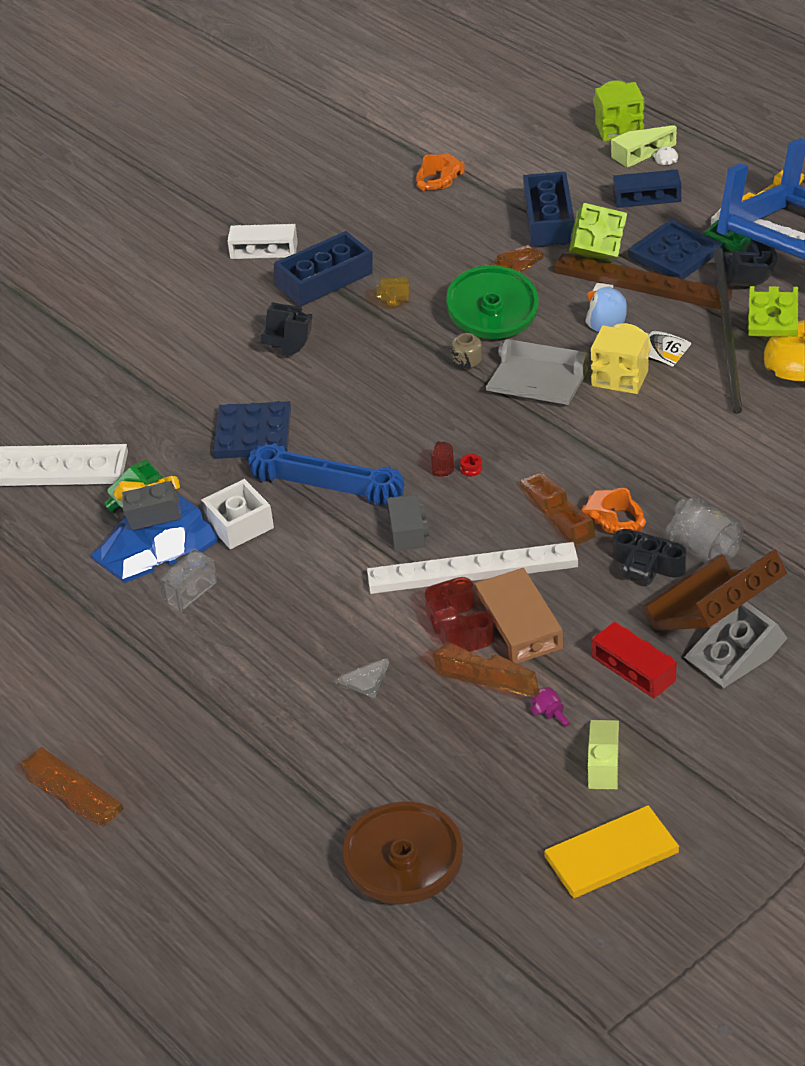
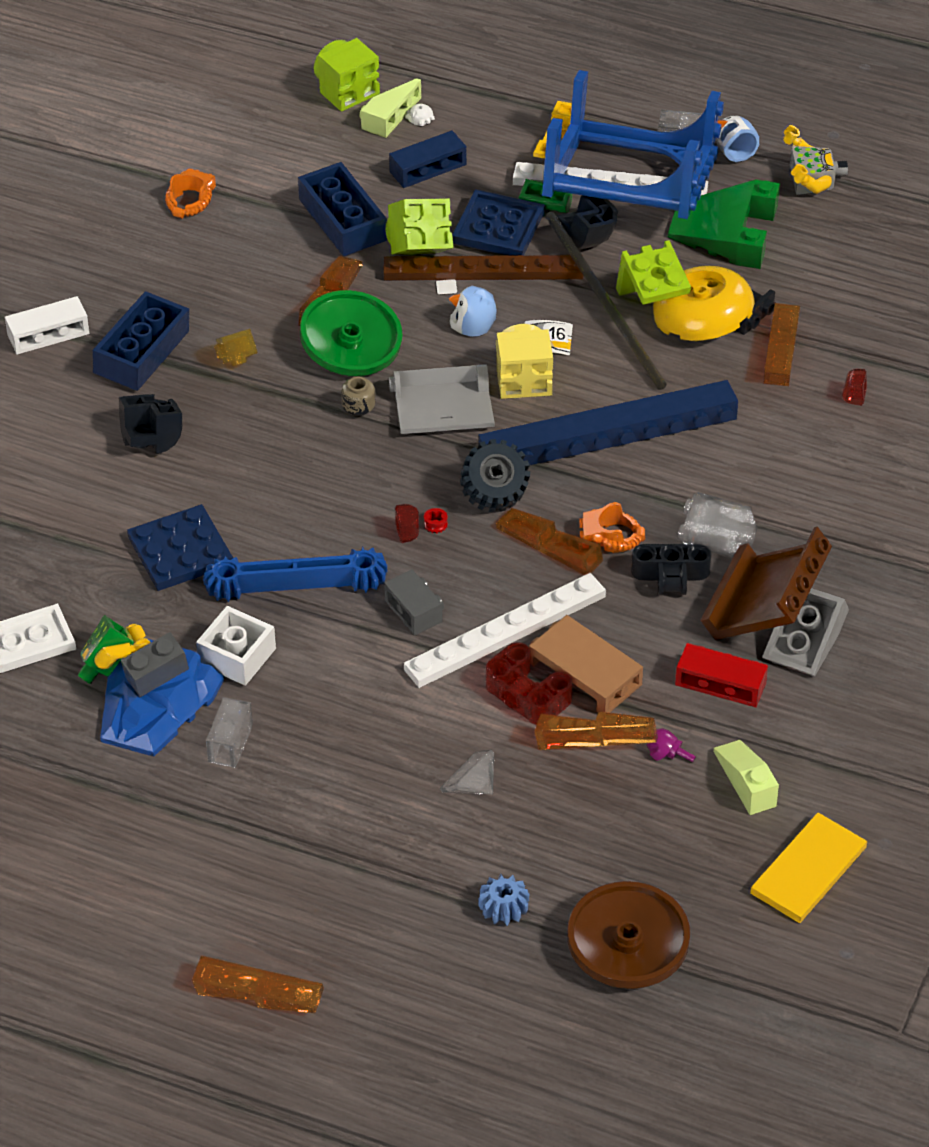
camera: 30 degrees left, 5 degrees up
(319, 786) = (503, 899): none -> medium blue gear
(534, 439) = (495, 475): none -> black wheel
(666, 429) = (620, 423): none -> dark blue brick

